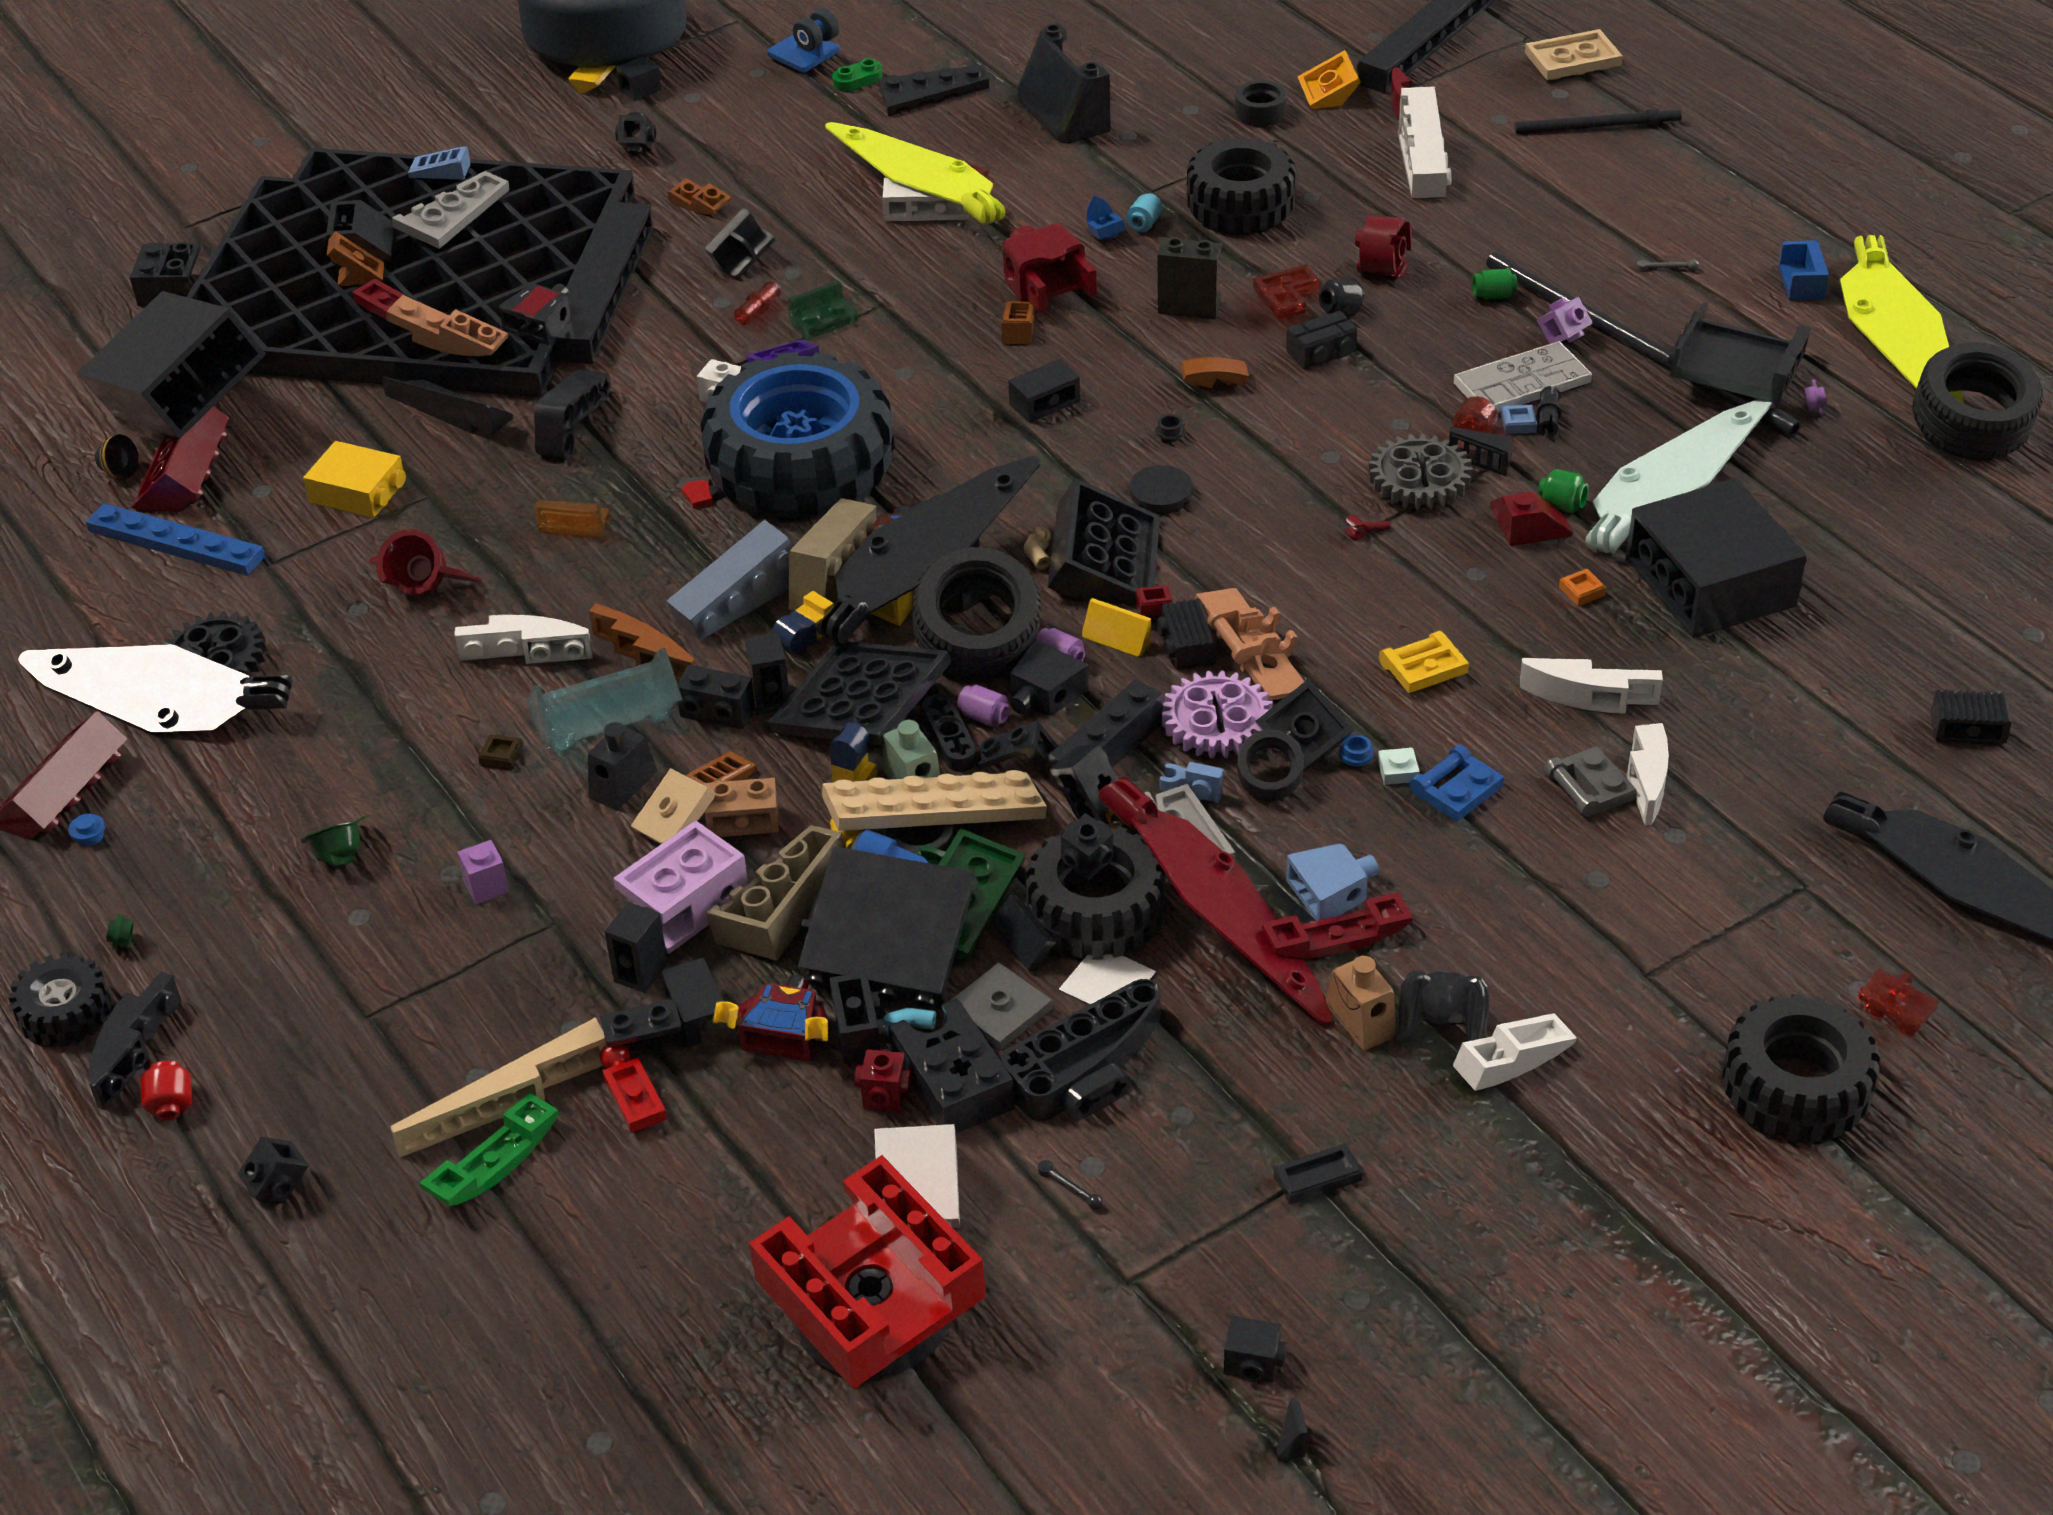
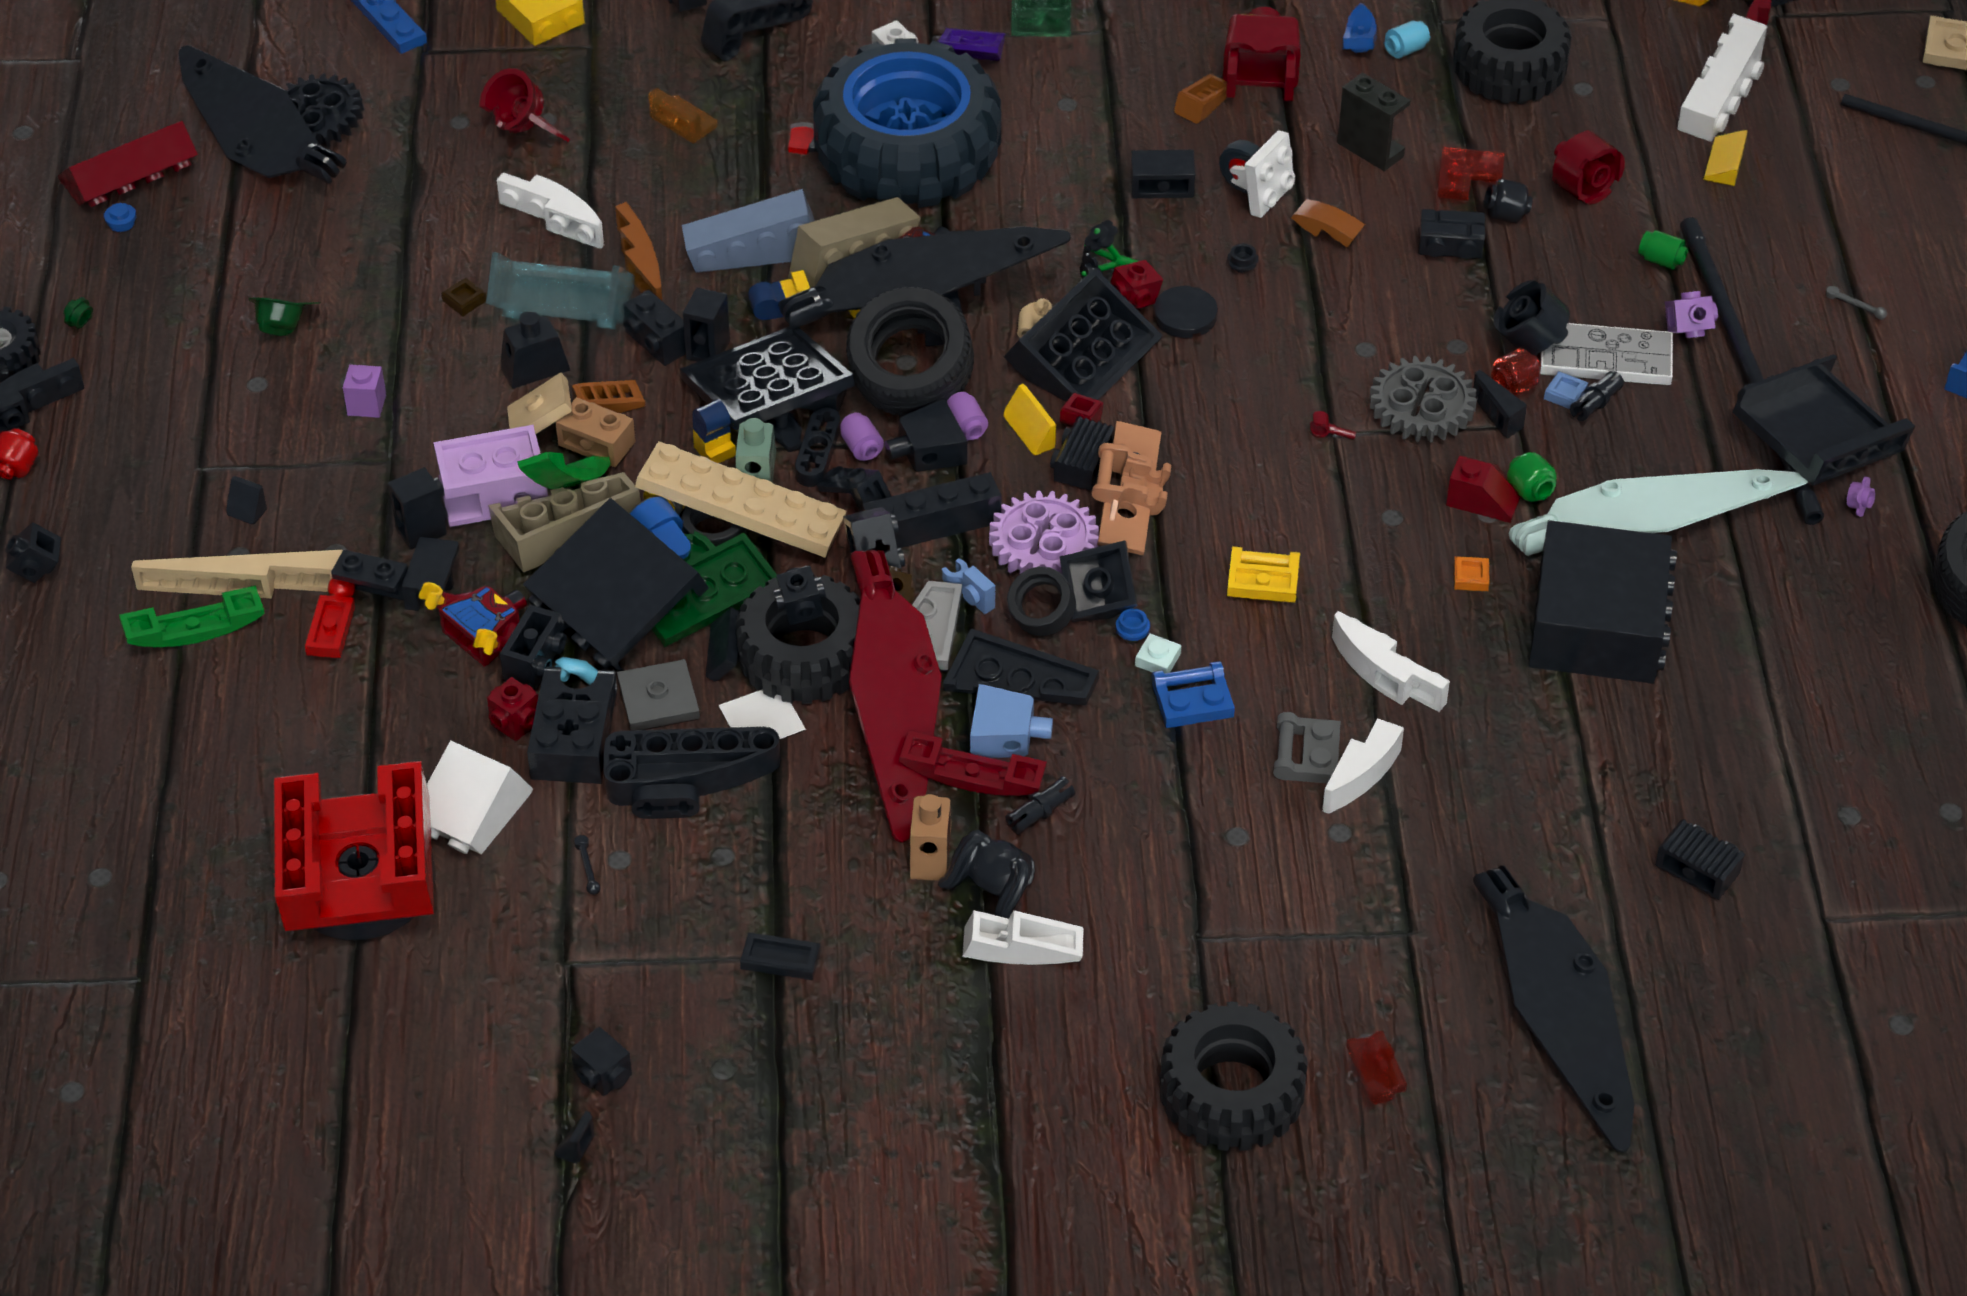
camera: 30 degrees right, 5 degrees up
(447, 1022) = (245, 500): none -> black slope
(758, 847) = (551, 472): none -> green slope
(1057, 453) = (1101, 237): none -> black plant
(1110, 477) = (1137, 283): none -> dark red brick
(1120, 354) = (1260, 172): none -> white plate
(1269, 836) = (1018, 669): none -> black wing
(1421, 932) = (1040, 805): none -> black pin
(1455, 370) = (1533, 317): none -> black brick
(1473, 201) = (1726, 158): none -> yellow slope

